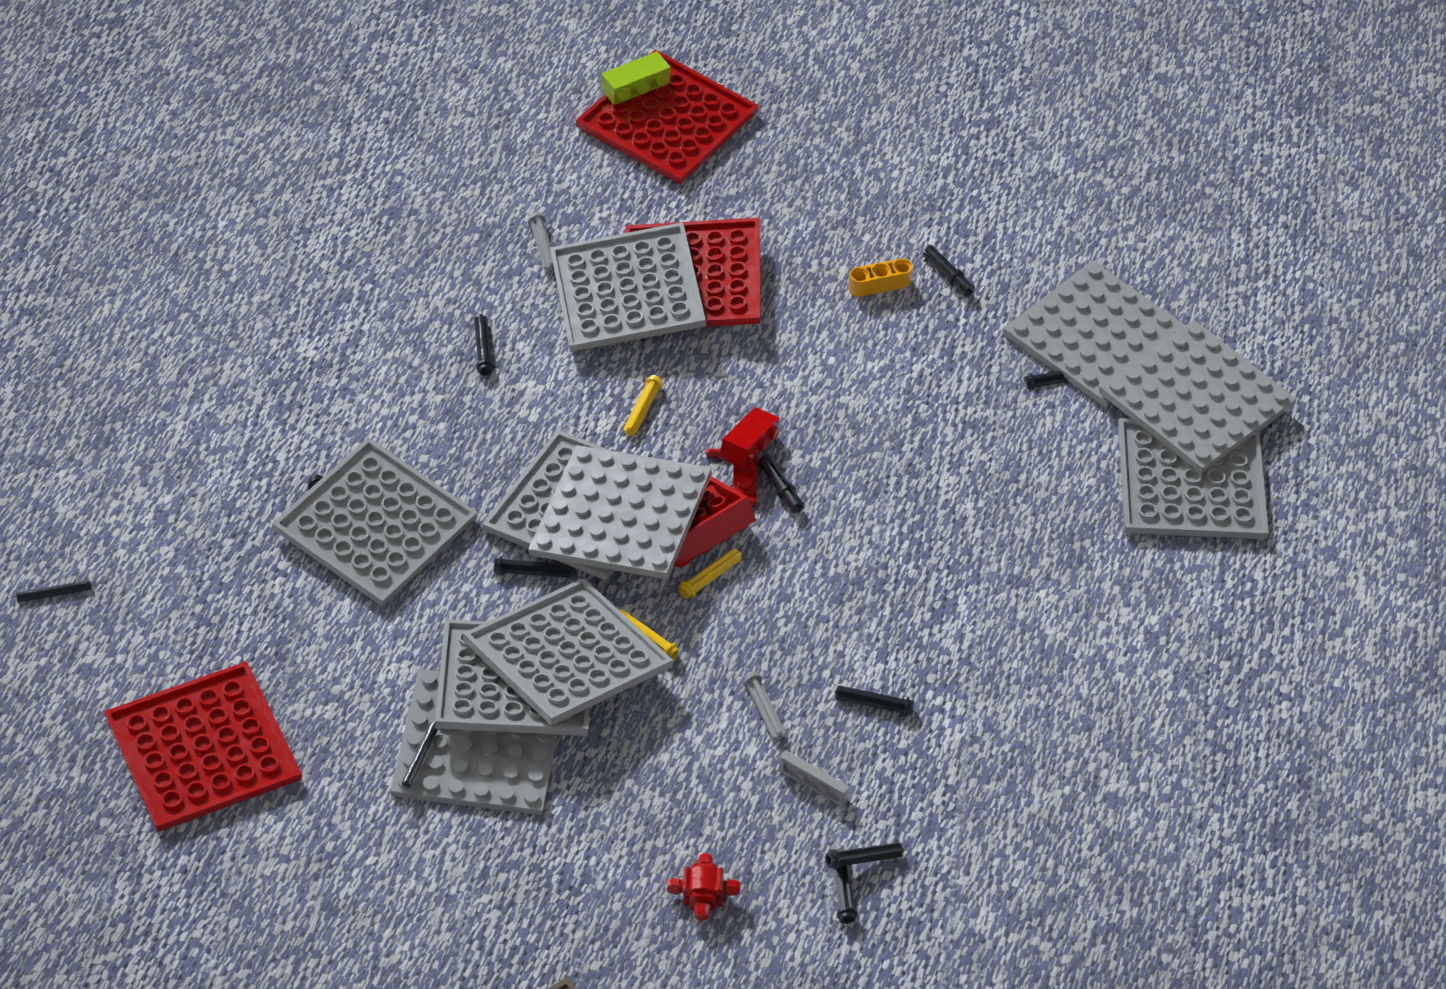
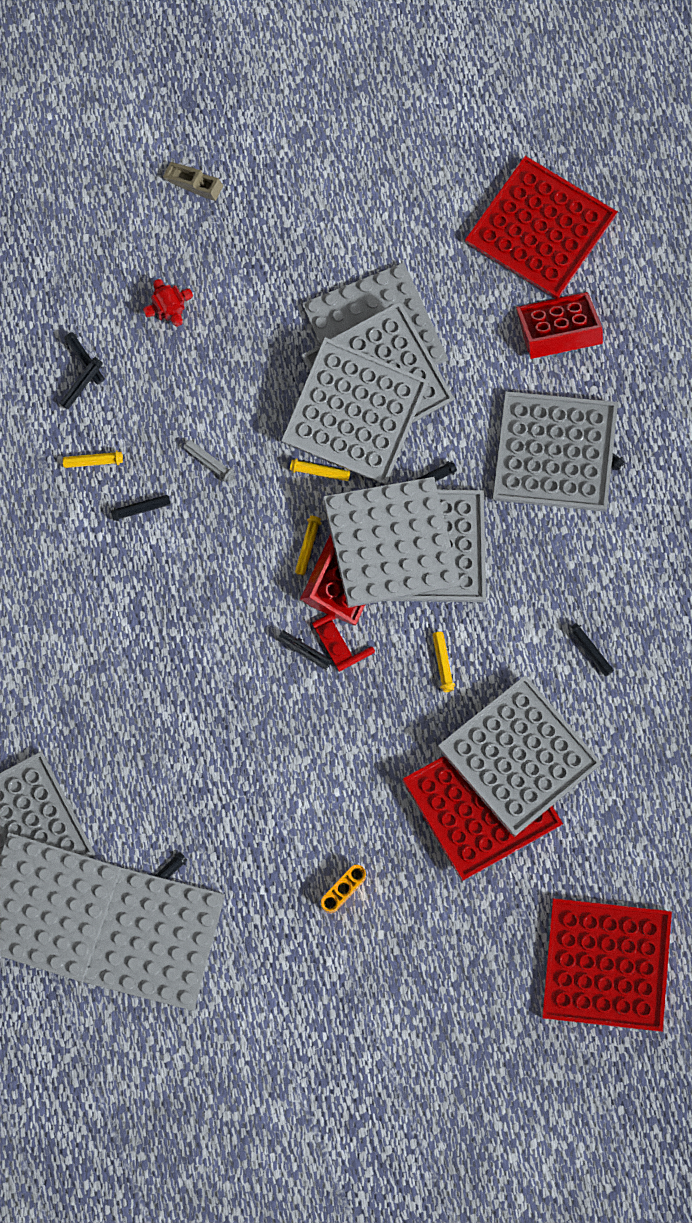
camera: 155 degrees right, 25 degrees up
(268, 635) = (560, 325): none -> red slope
(419, 756) = (399, 287): black bar -> none
(536, 221) = (610, 769): light grey axle -> none
(635, 78) = (651, 977): lime brick -> none
(749, 437) = (345, 668): red brick -> none
(814, 778) = (145, 422): light grey plate -> none
(899, 774) = (93, 459): none -> yellow axle
(954, 276) = (297, 931): black pin -> none

